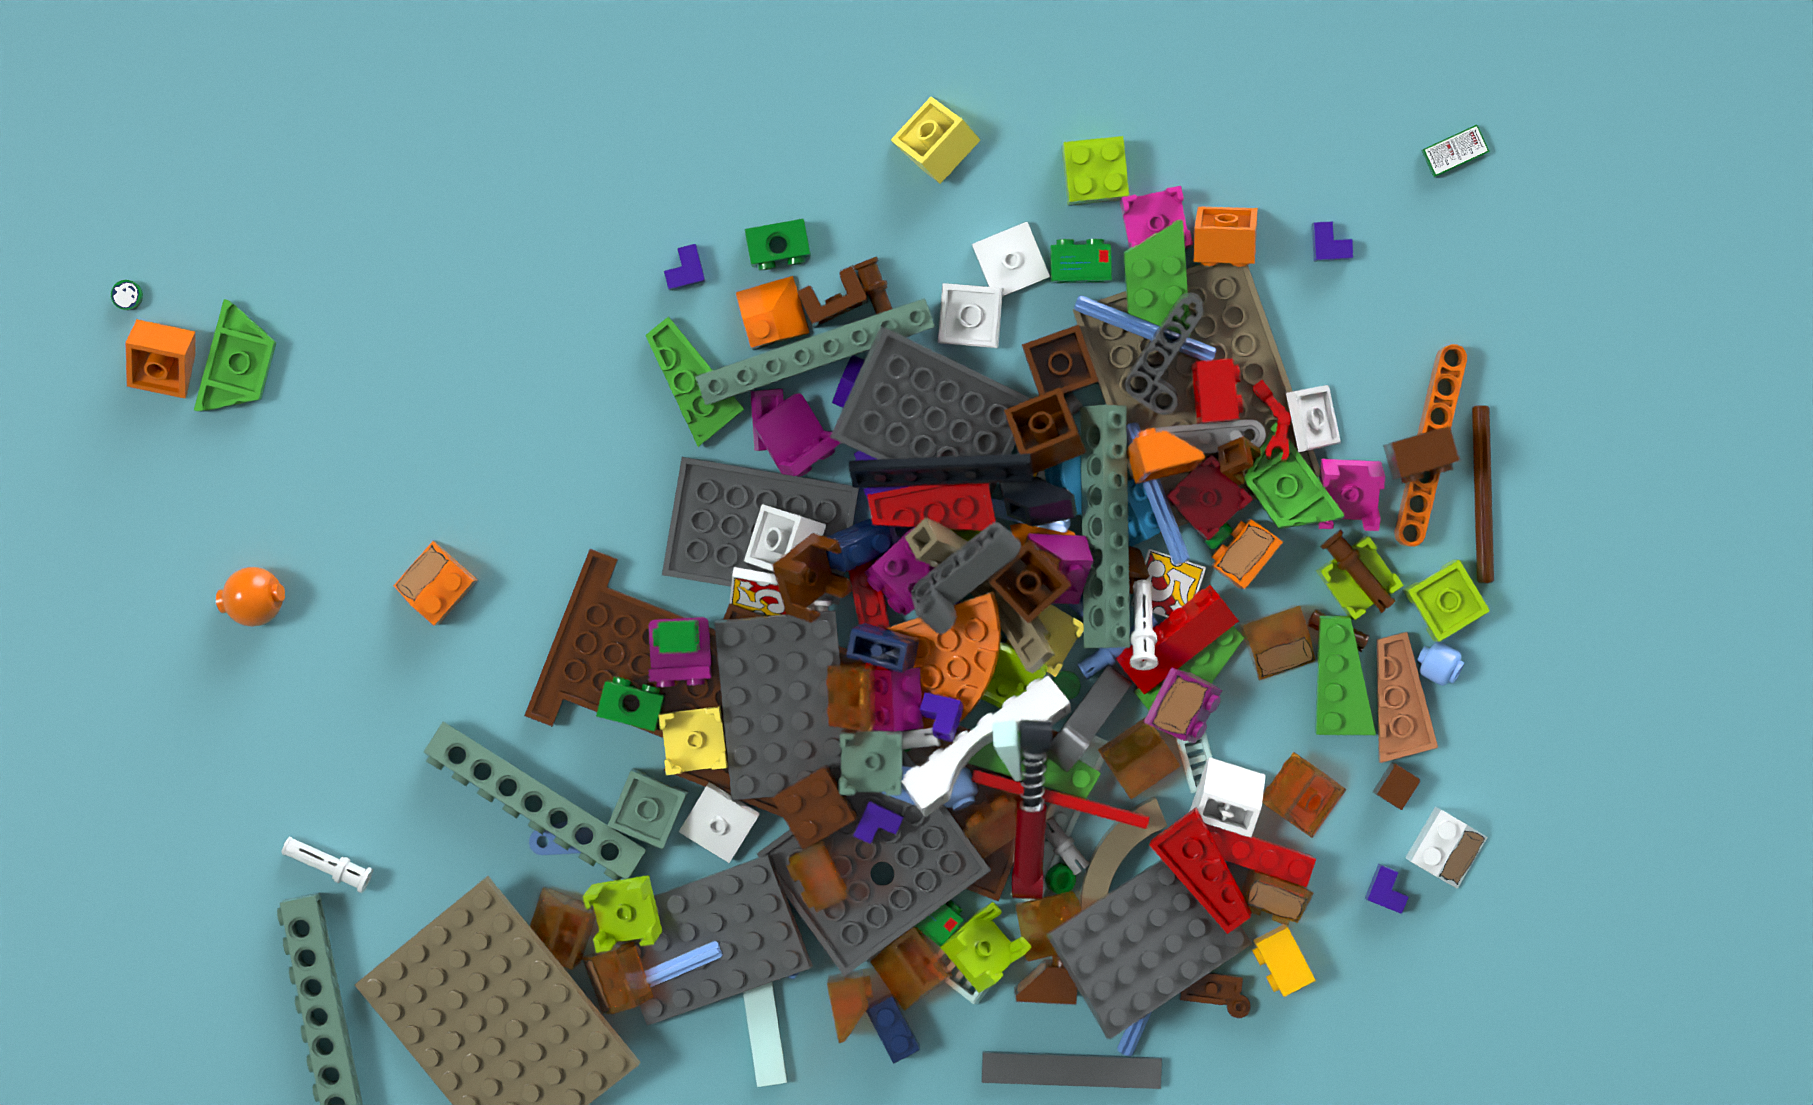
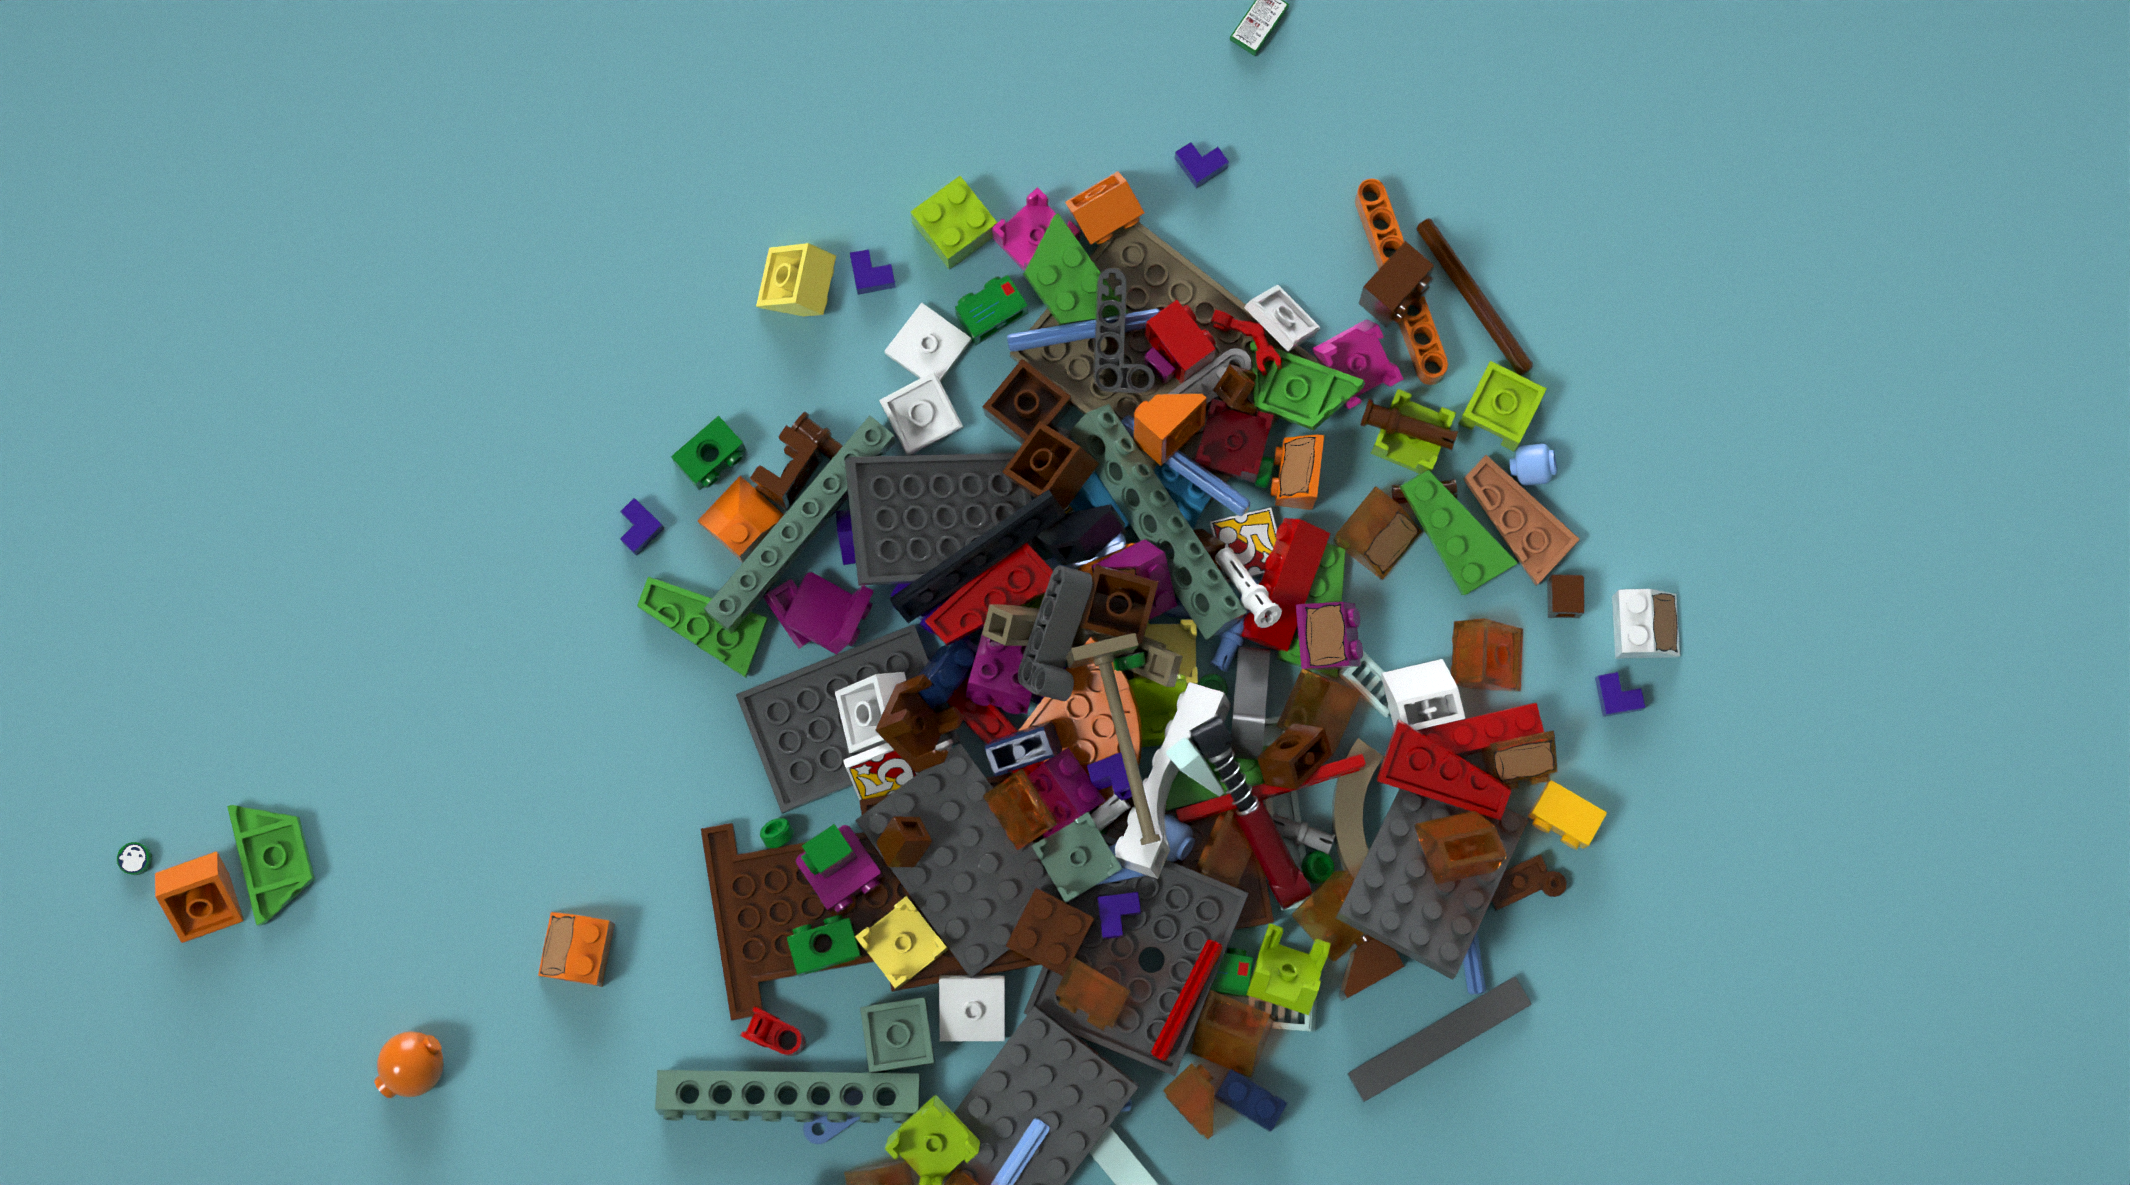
camera: 30 degrees left, 10 degrees down
(550, 744) = (768, 1032): none -> red piece
(648, 588) = (776, 833): none -> green tile
(742, 665) = (904, 841): none -> reddish brown panel
(889, 924) = (1186, 1000): none -> red axle
(988, 618) = (1103, 654): none -> dark tan tile
(996, 173) = (870, 278): none -> dark purple piece
(1009, 631) = (1129, 661): none -> green tile
(1094, 787) = (1294, 756): none -> reddish brown brick
(1180, 937) = (1460, 846): none -> clear orange slope
(1187, 397) = (1159, 365): none -> magenta tile

